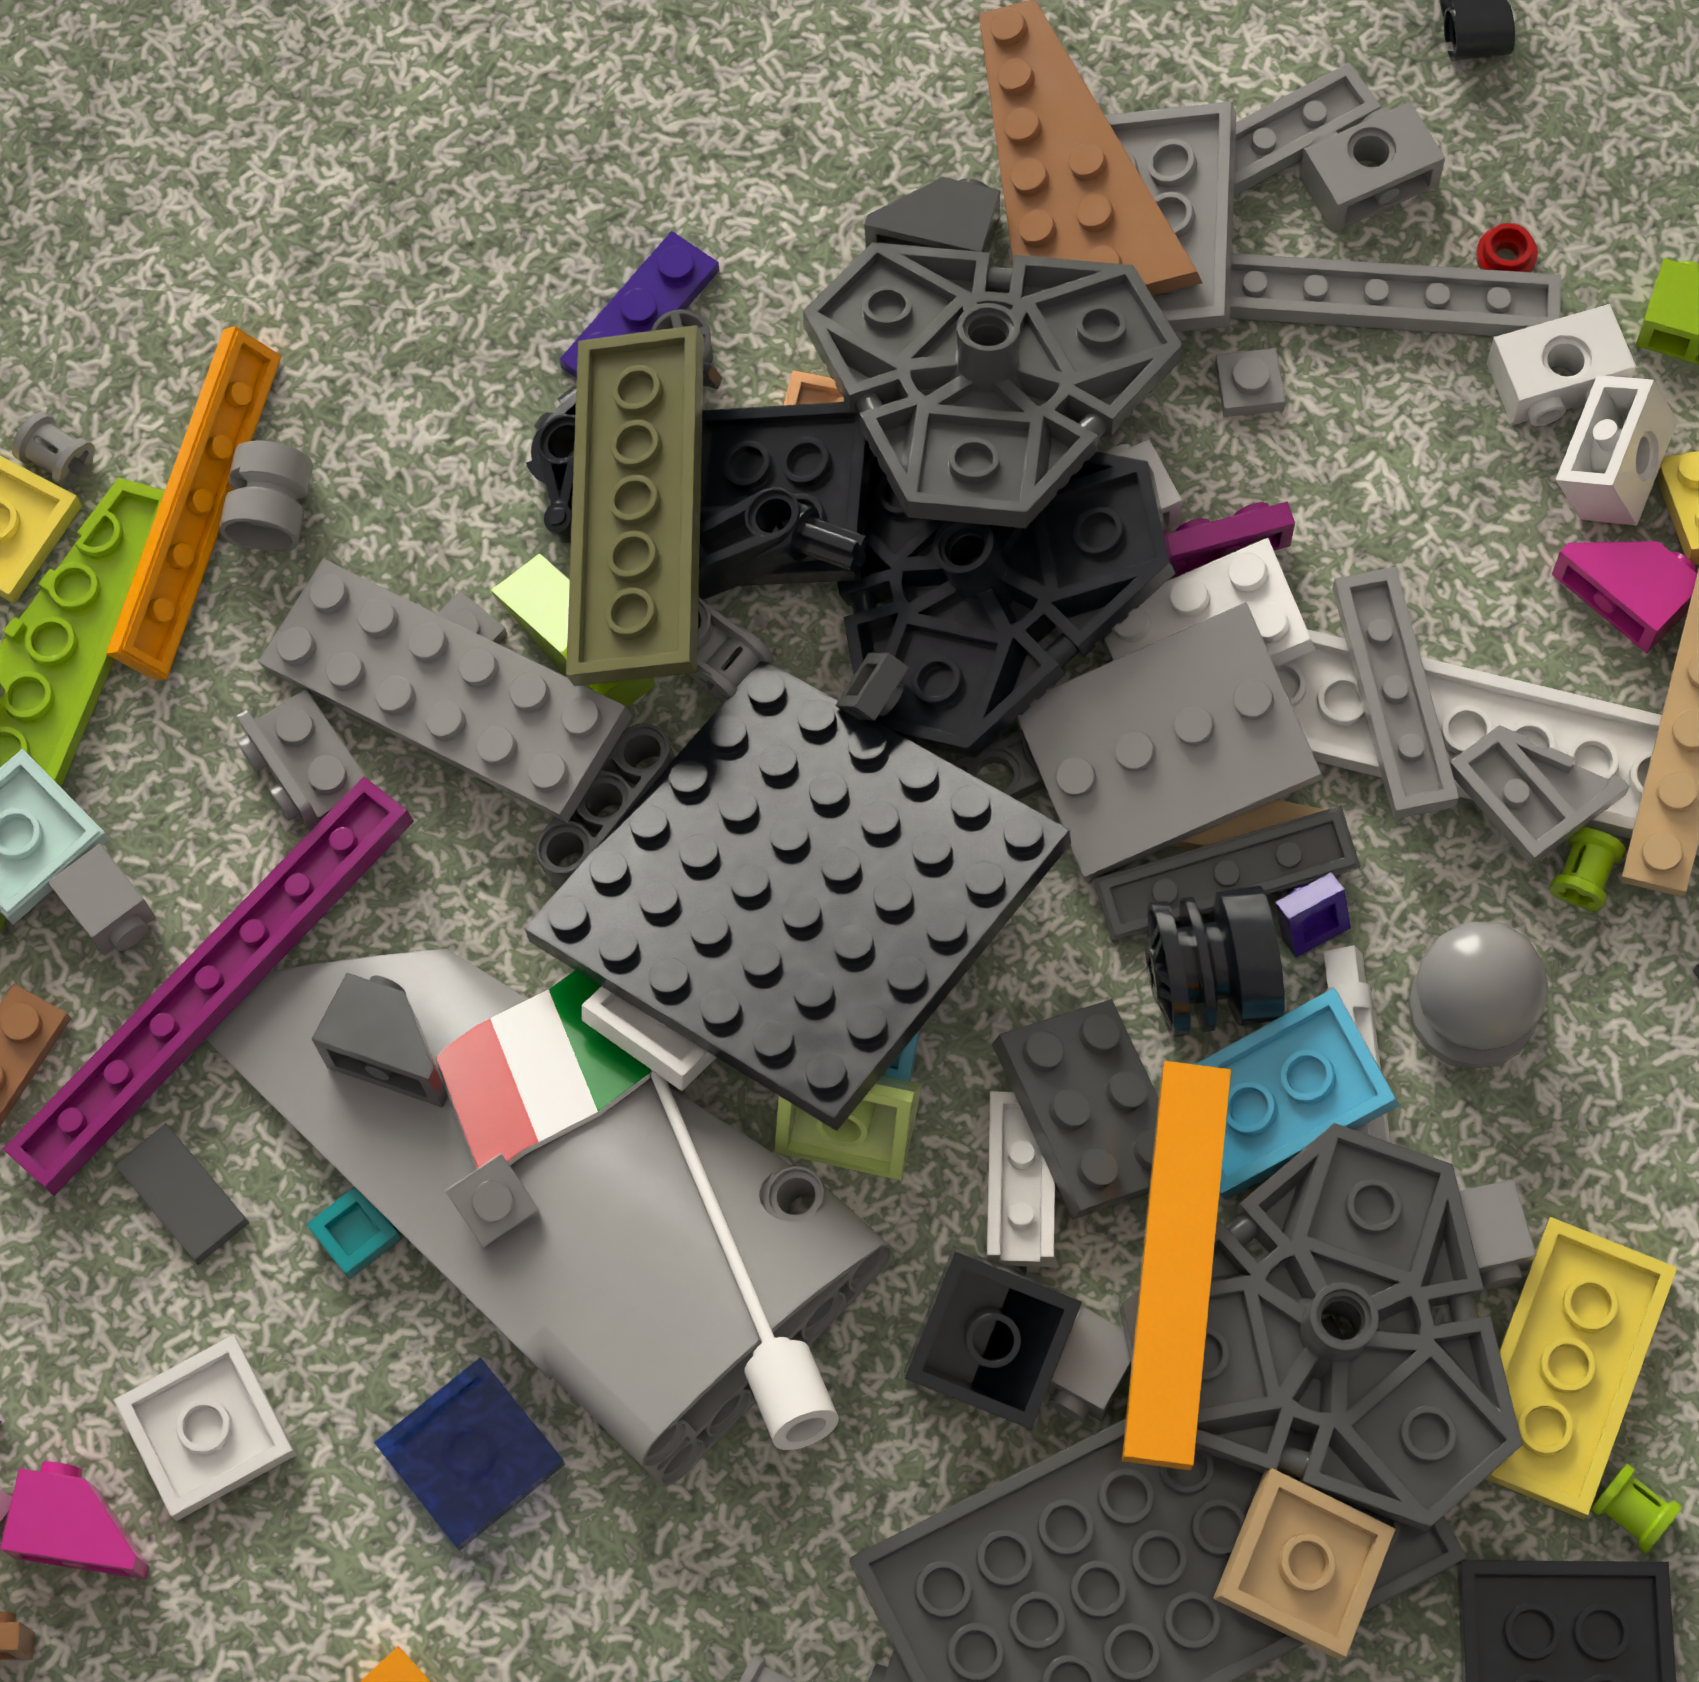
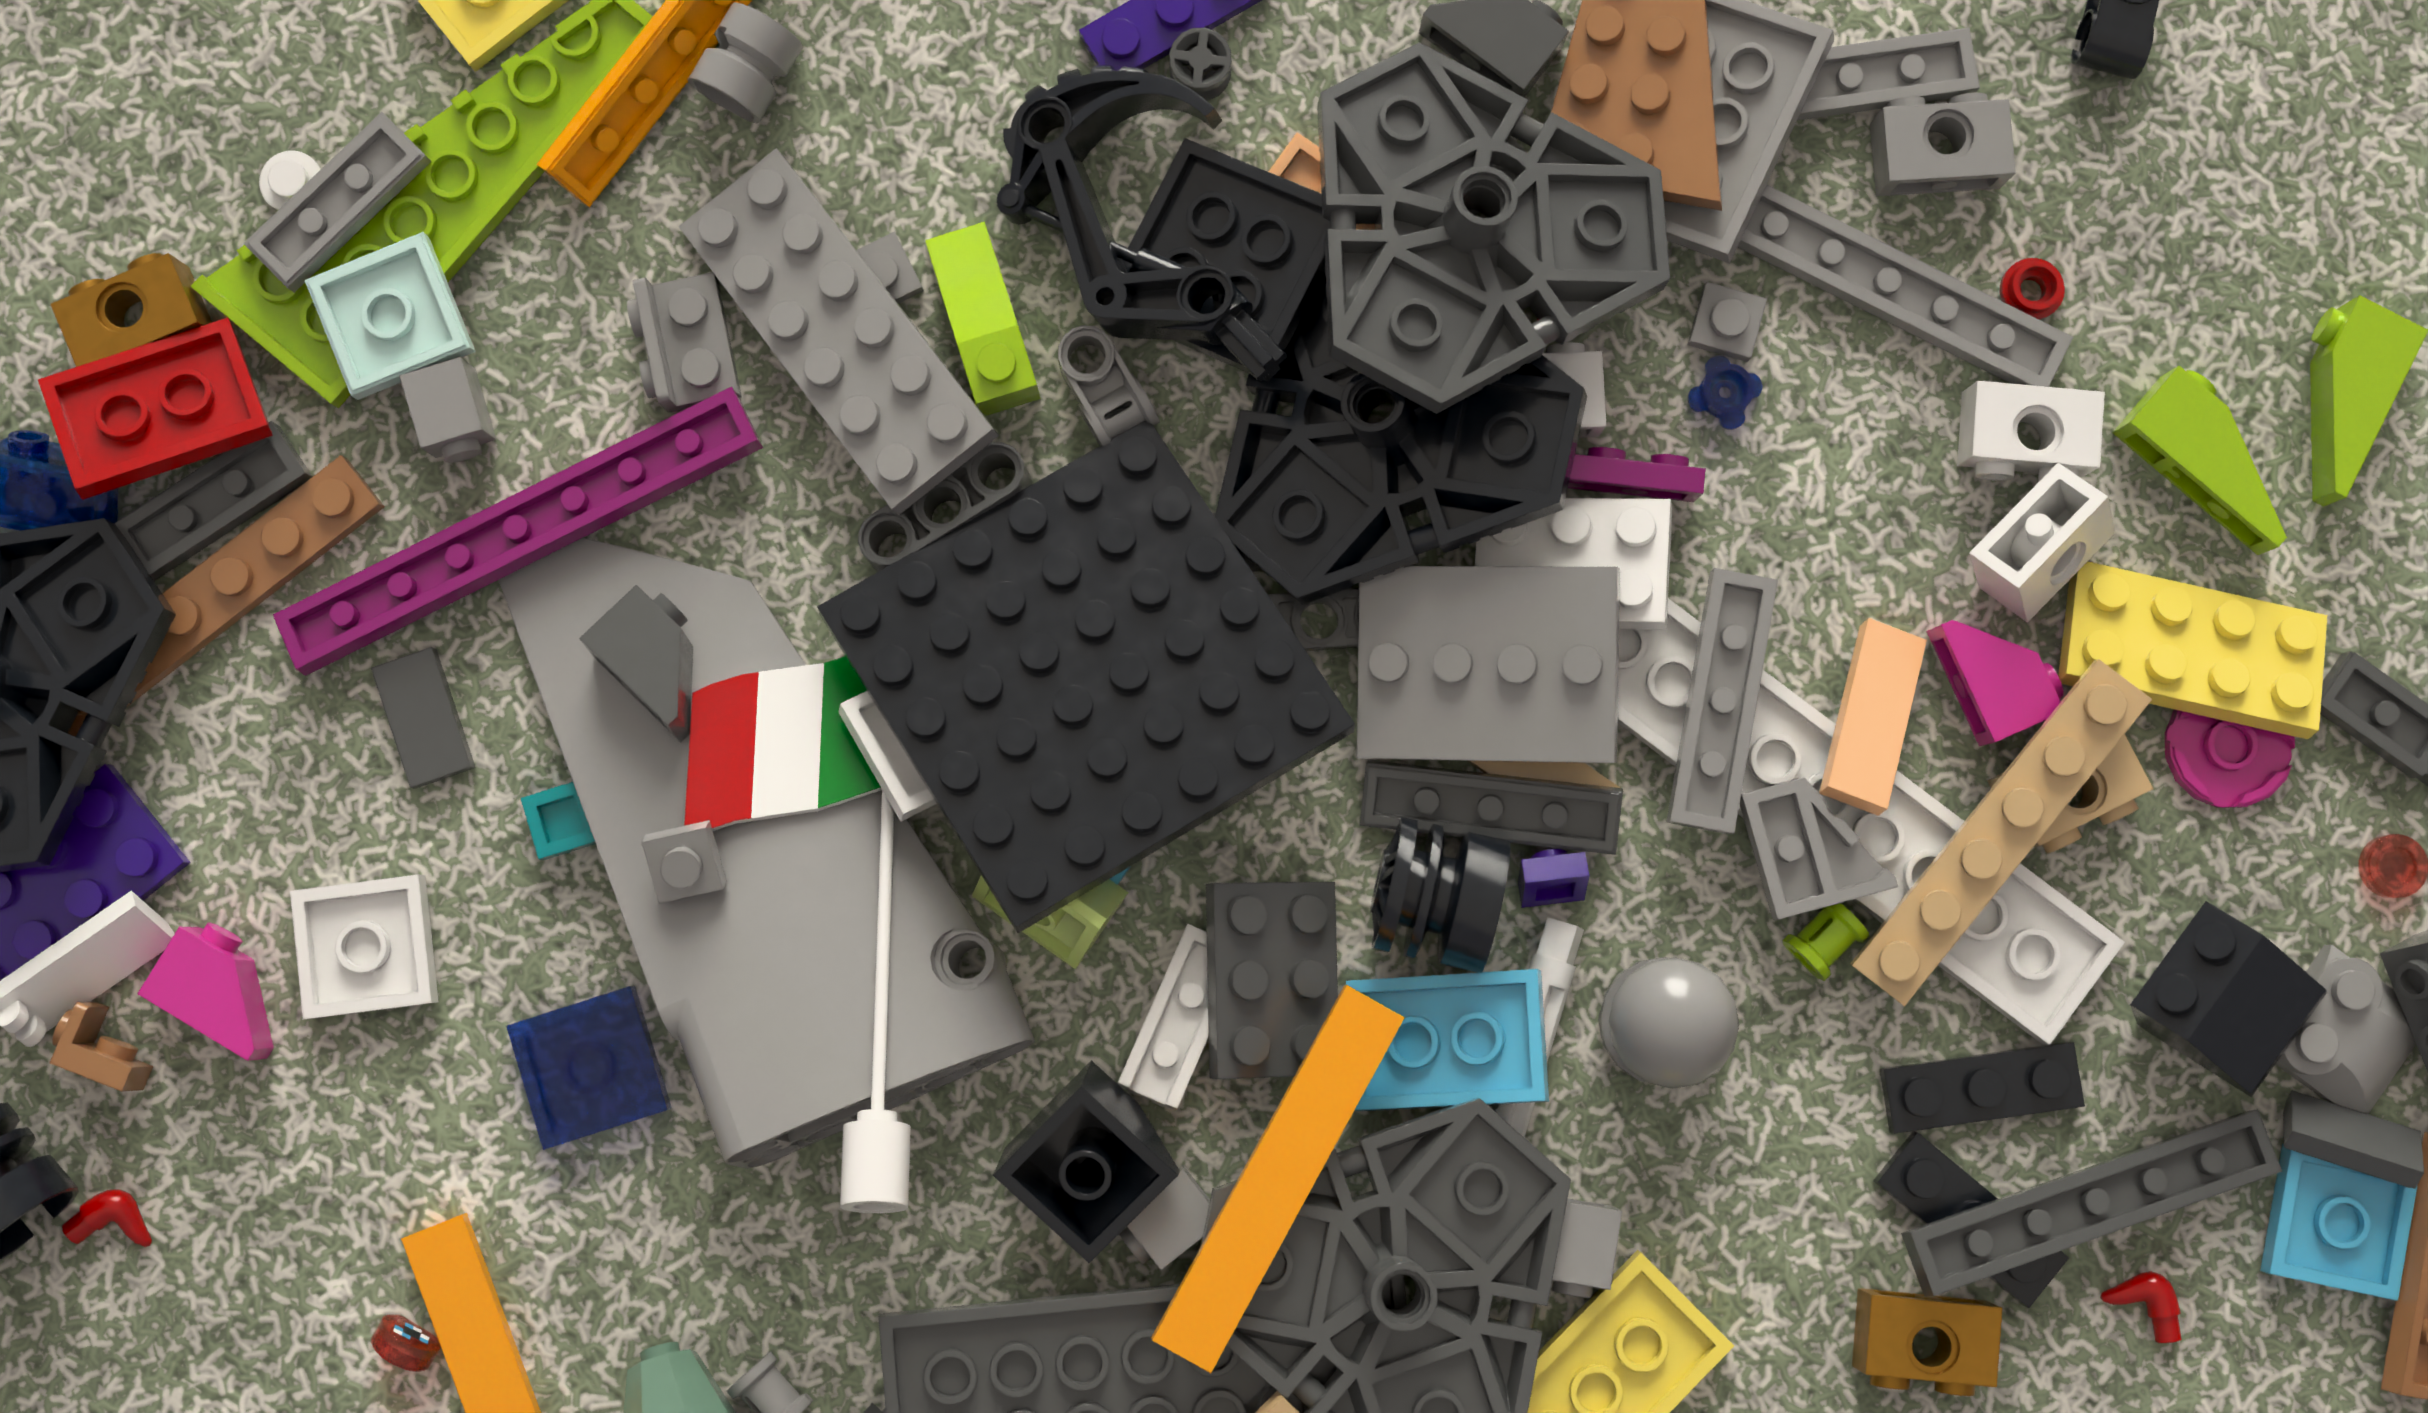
camera: 15 degrees right, 15 degrees up
(636, 507) = (1081, 230): olive plate -> none
(873, 687) = (1233, 502): dark grey plate -> none
(1279, 425) = (1720, 374): none -> clear blue plate
(1538, 657) = (1873, 717): none -> light nougat tile

